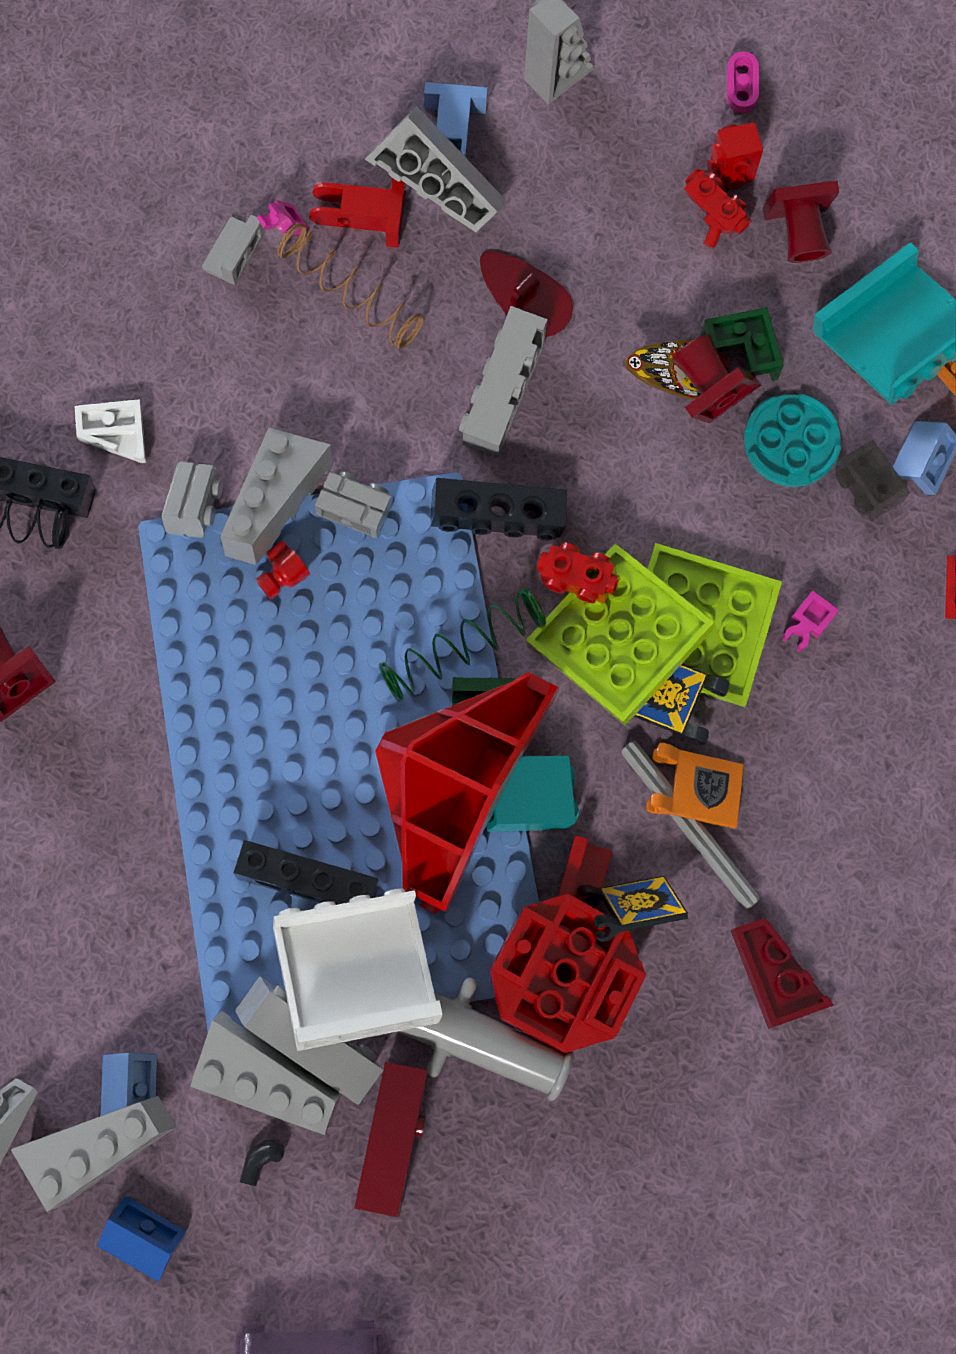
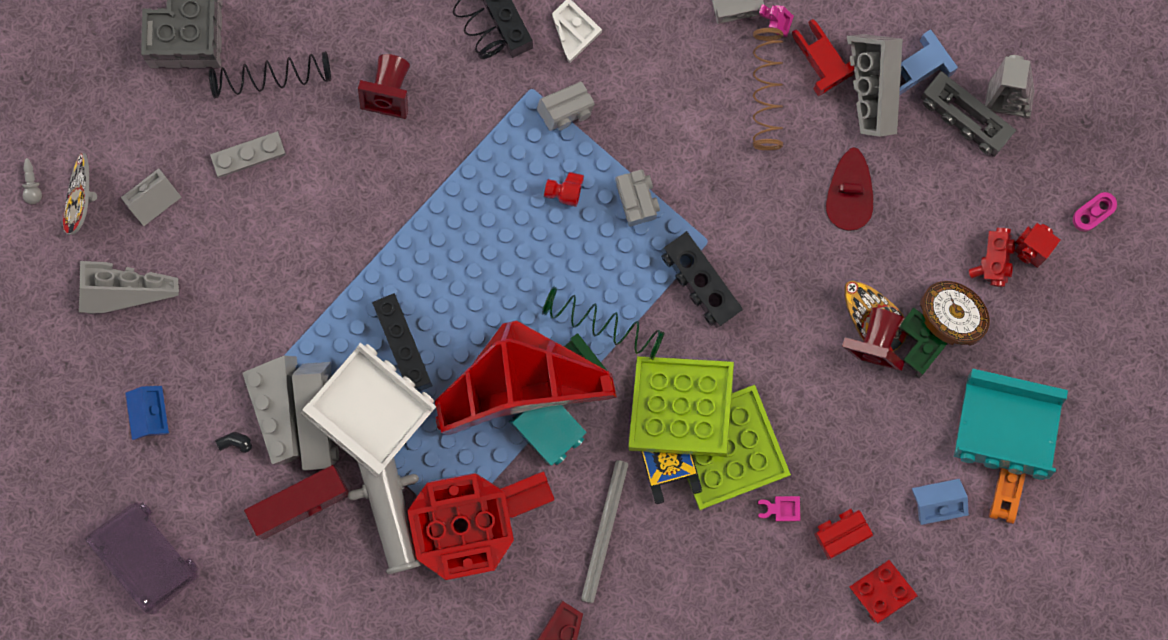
camera: 55 degrees right, 5 degrees up
(82, 1155) = (164, 346): light grey wedge -> none
(127, 1080) = (217, 342): medium blue panel -> none
(273, 490) = (606, 147): light grey wedge -> none
(504, 381) = (780, 223): light grey wedge -> none
(542, 119) = (940, 94): none -> dark grey brick
(567, 571) = (693, 347): red brick -> none
(633, 905) = (529, 534): flag -> none
(702, 788) = (631, 522): orange flag -> none
(742, 287) = (955, 313): none -> tile
(792, 440) = (887, 415): teal tile -> none
(804, 225) = (1028, 317): dark red plant -> none
(871, 481) = (896, 480): clear smoke brick -> none
(886, 578) = (843, 534): none -> red brick

